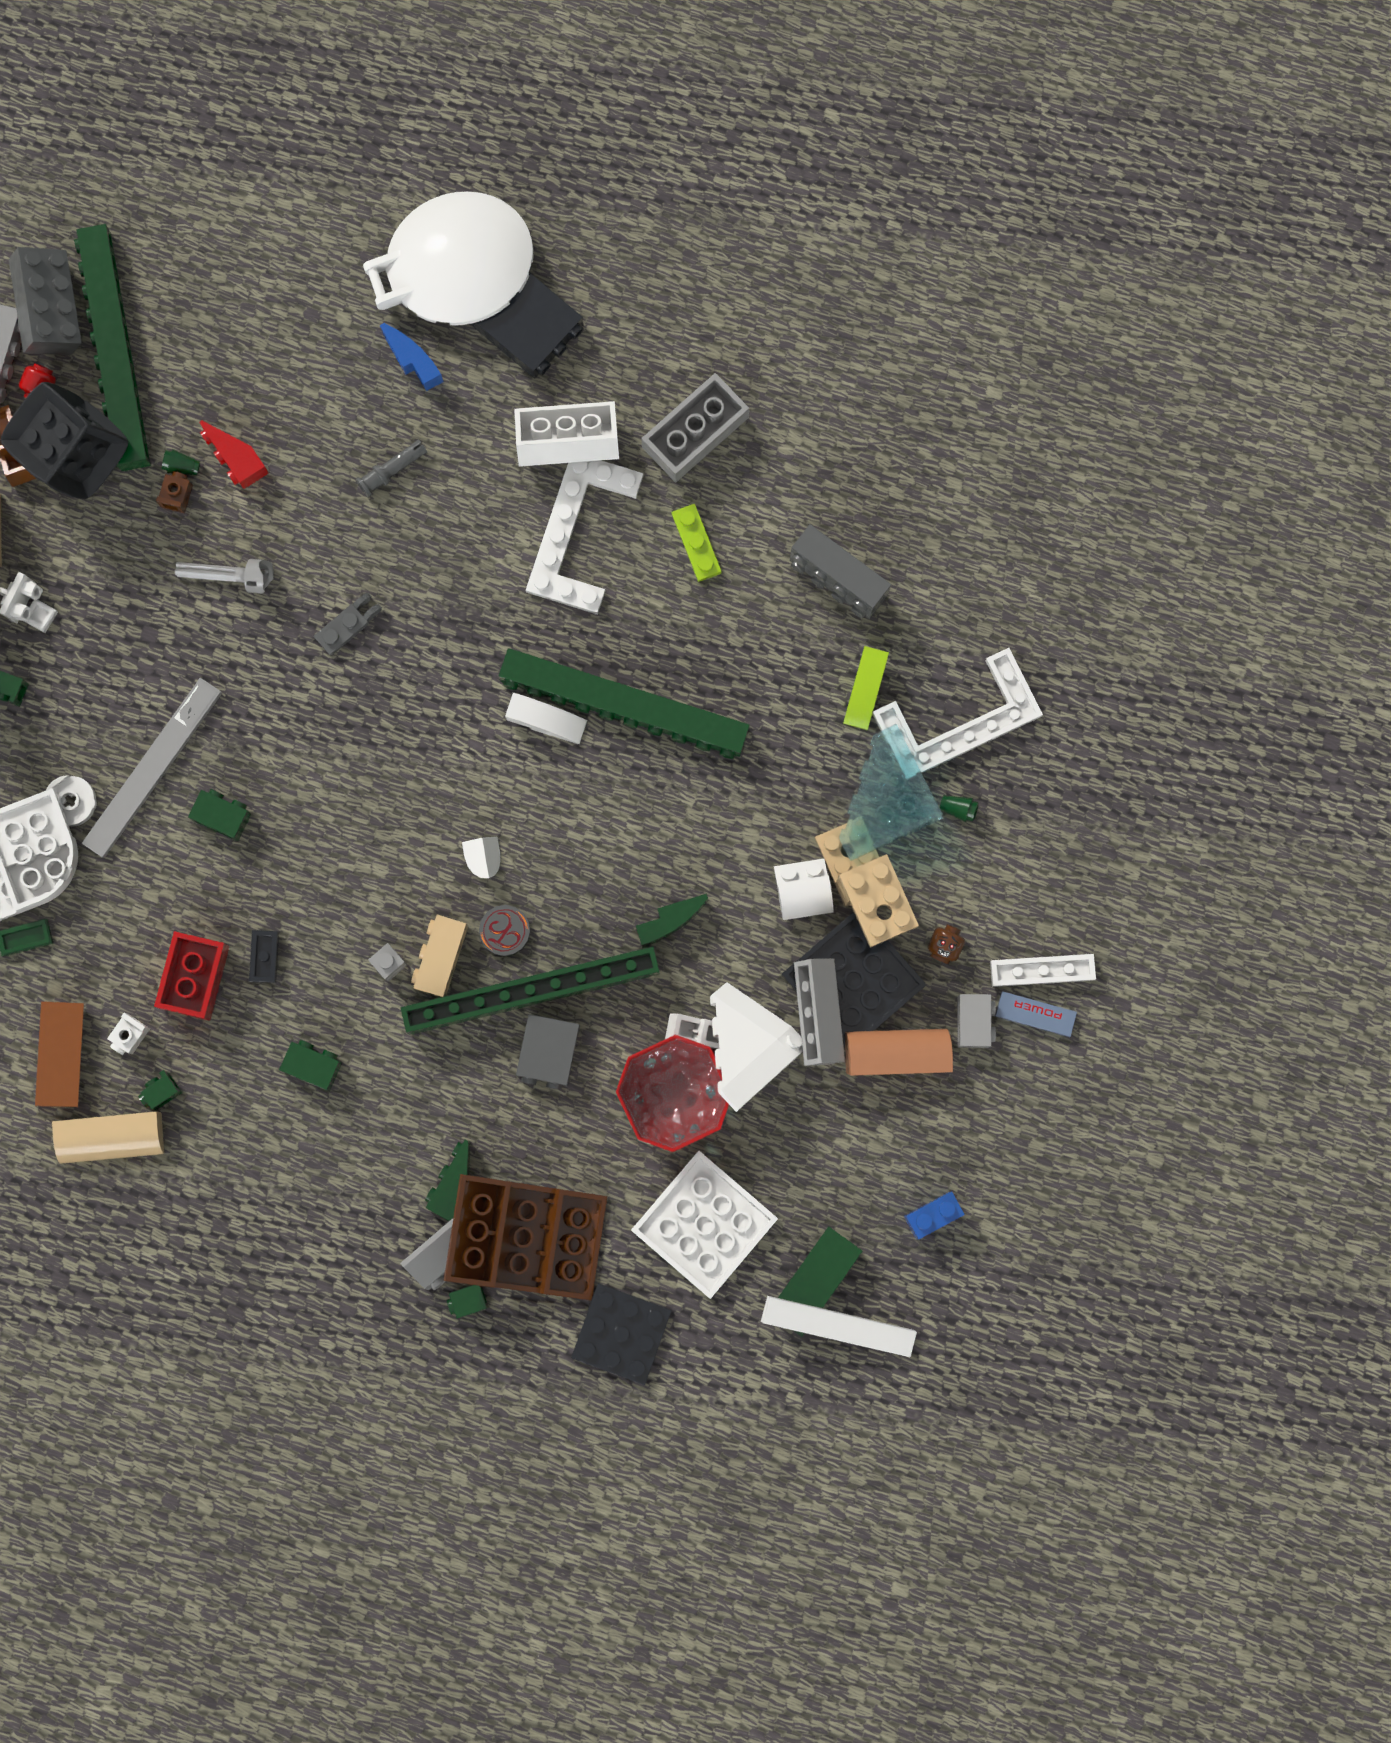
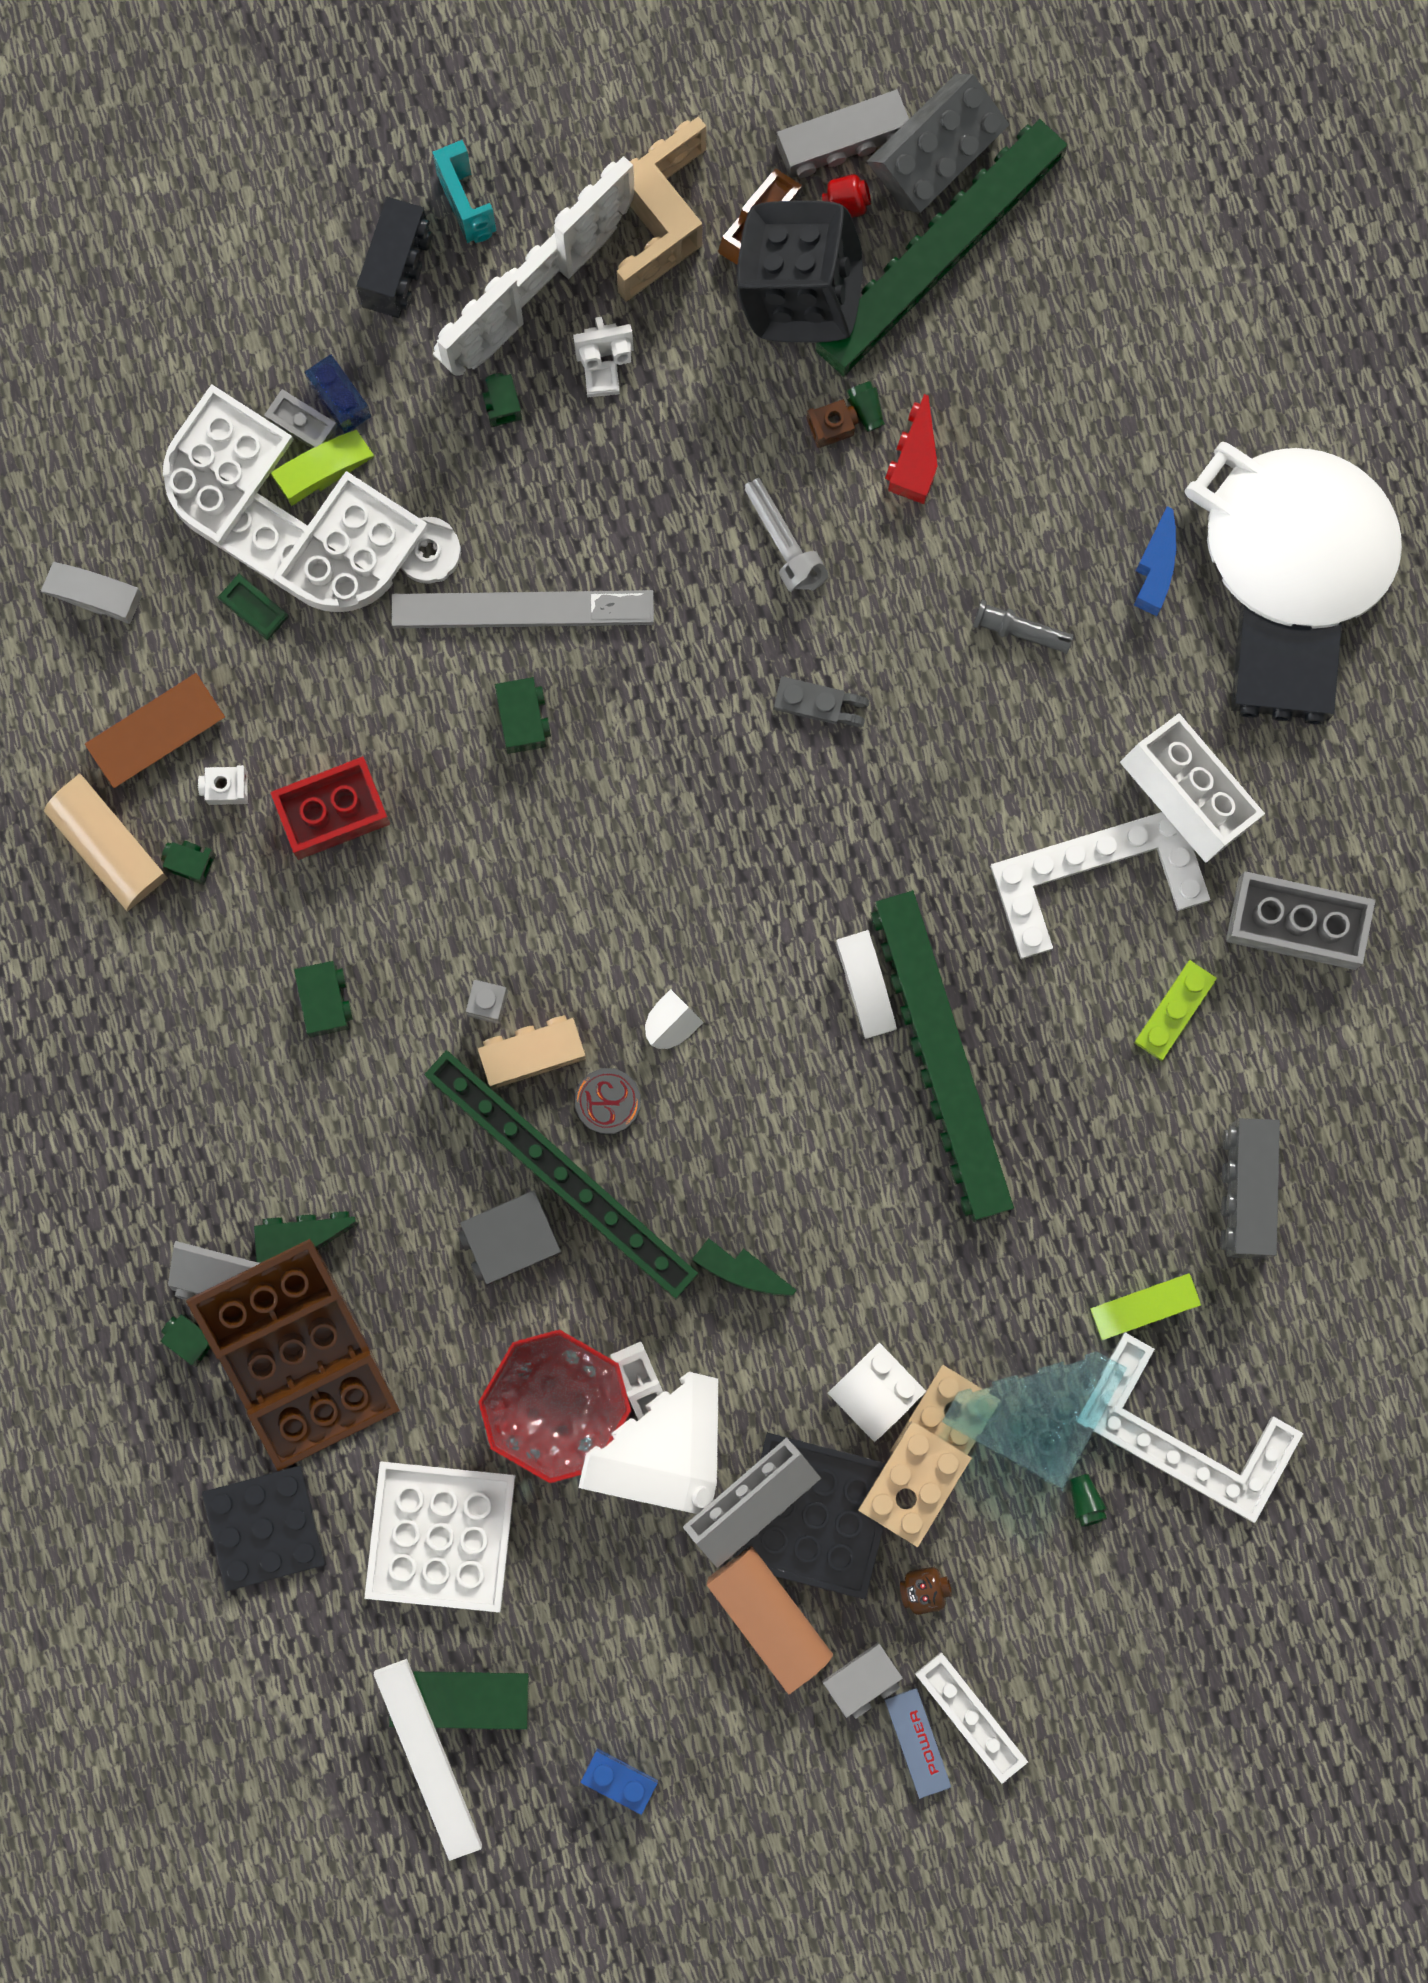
camera: 55 degrees right, 0 degrees up
(264, 956) = (404, 868): black plate -> none

